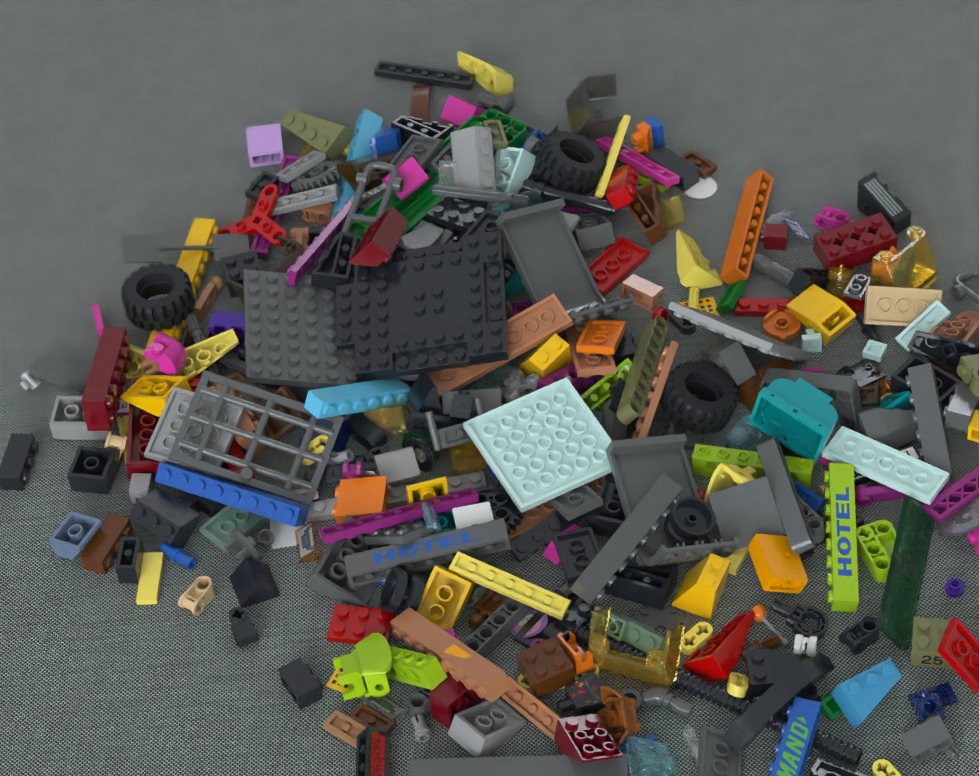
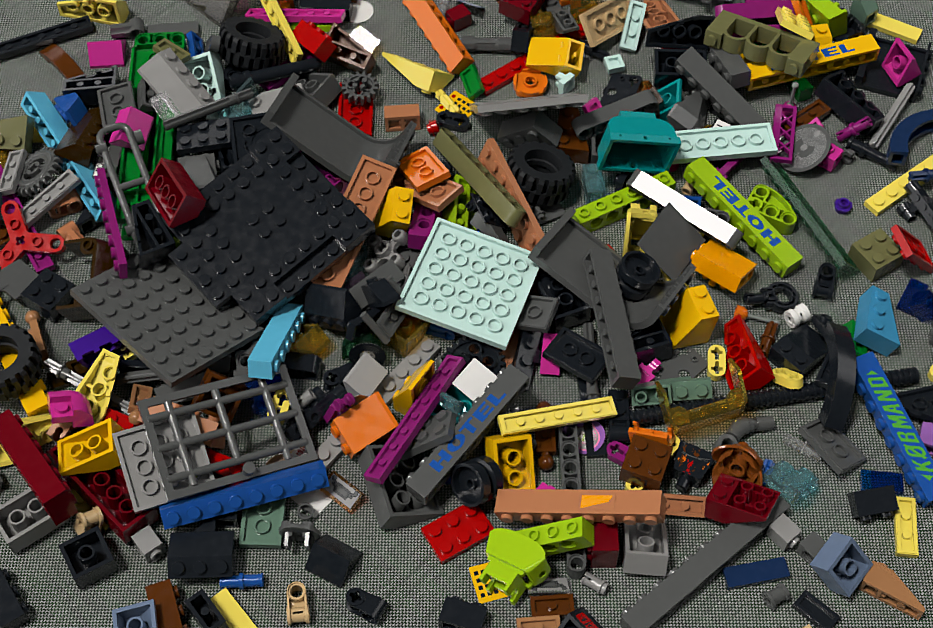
camera: 45 degrees left, 10 degrees up
(624, 605) = (648, 371): none -> dark pink plate
(627, 248) = (352, 86): none -> dark grey gear

